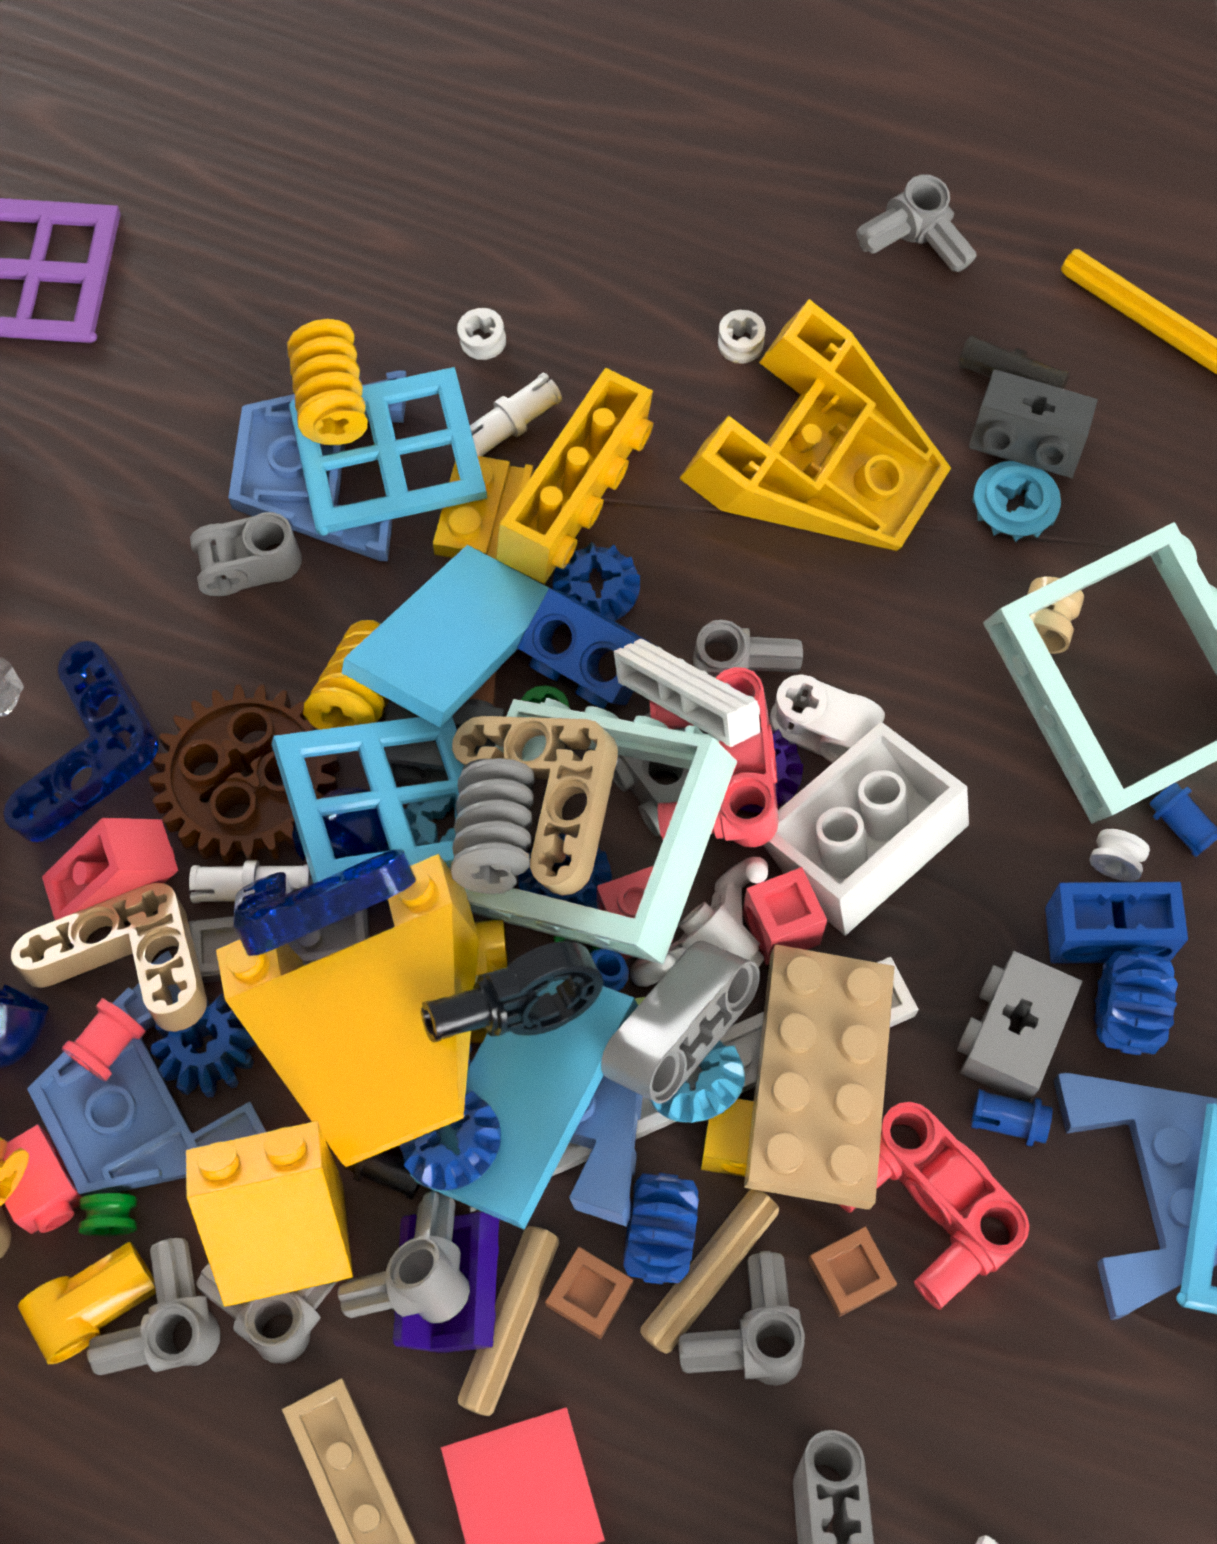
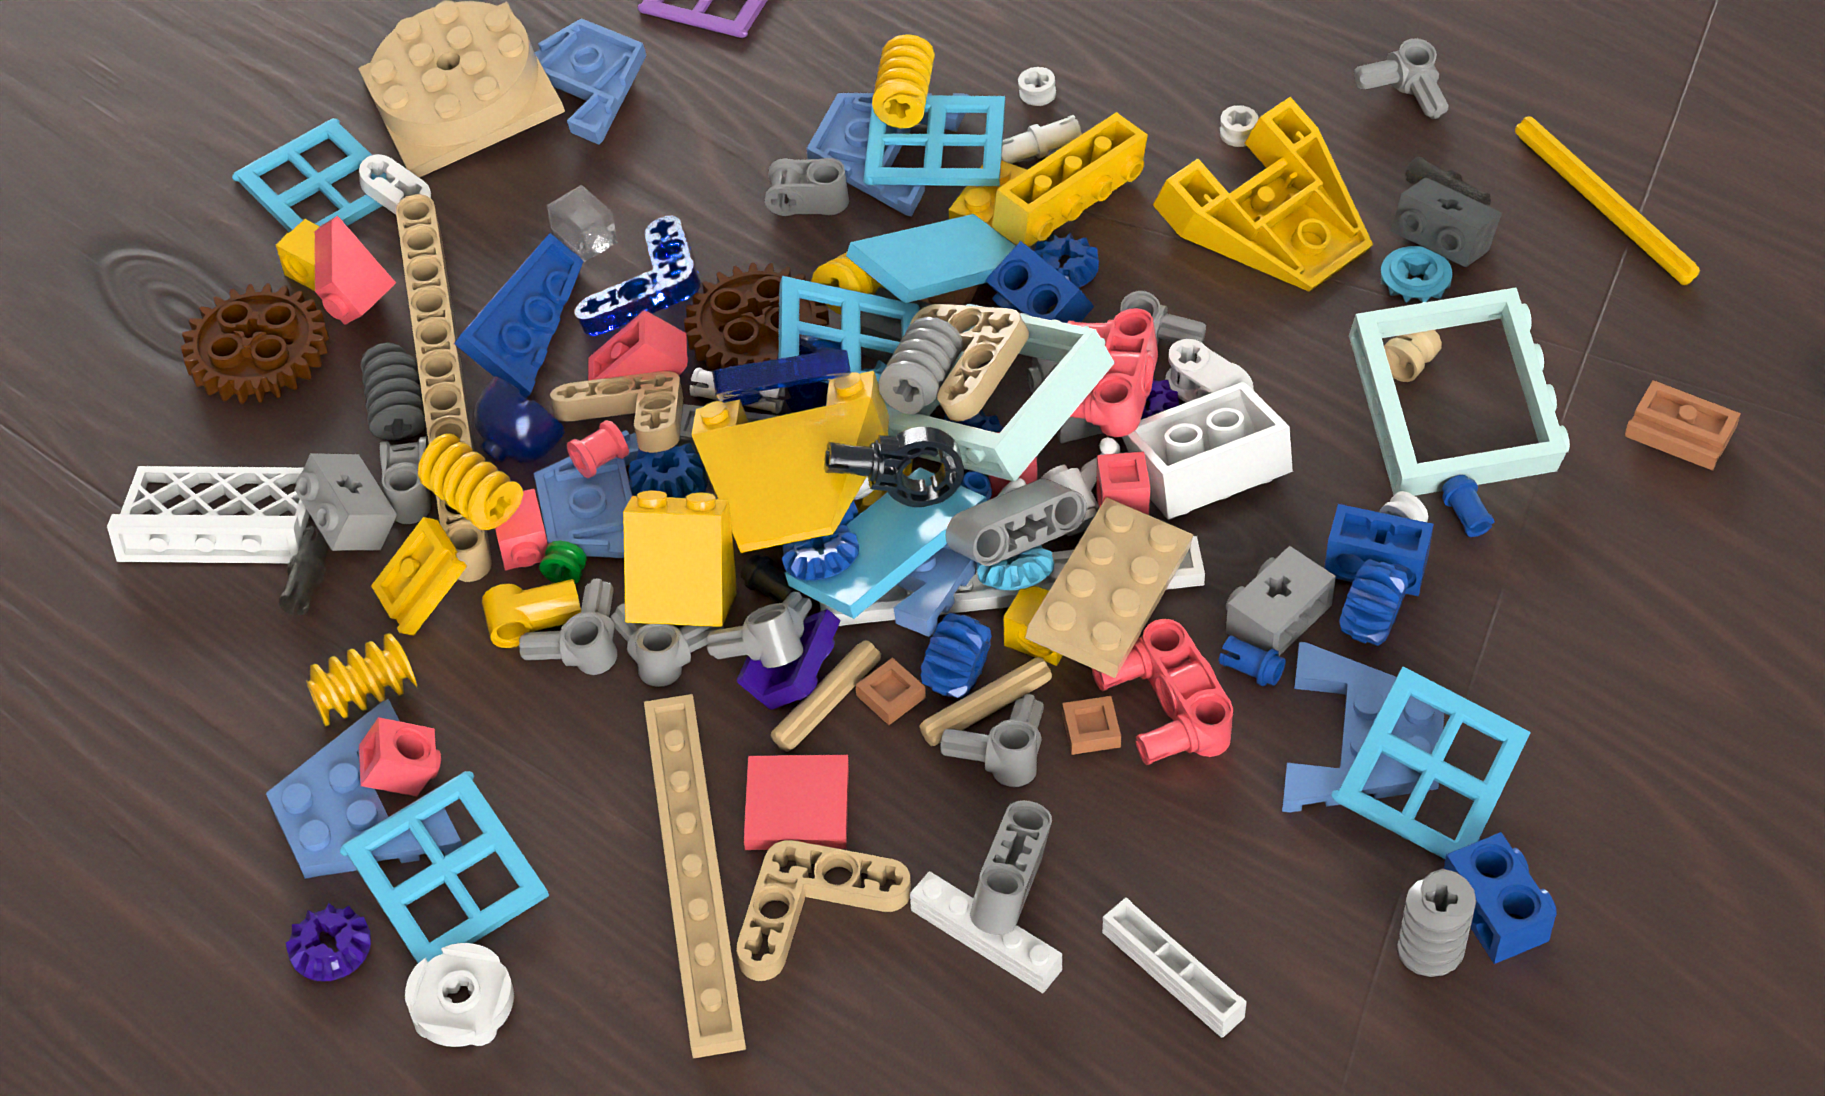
camera: 20 degrees right, 15 degrees down
(688, 692) = (1090, 309): white piece -> none

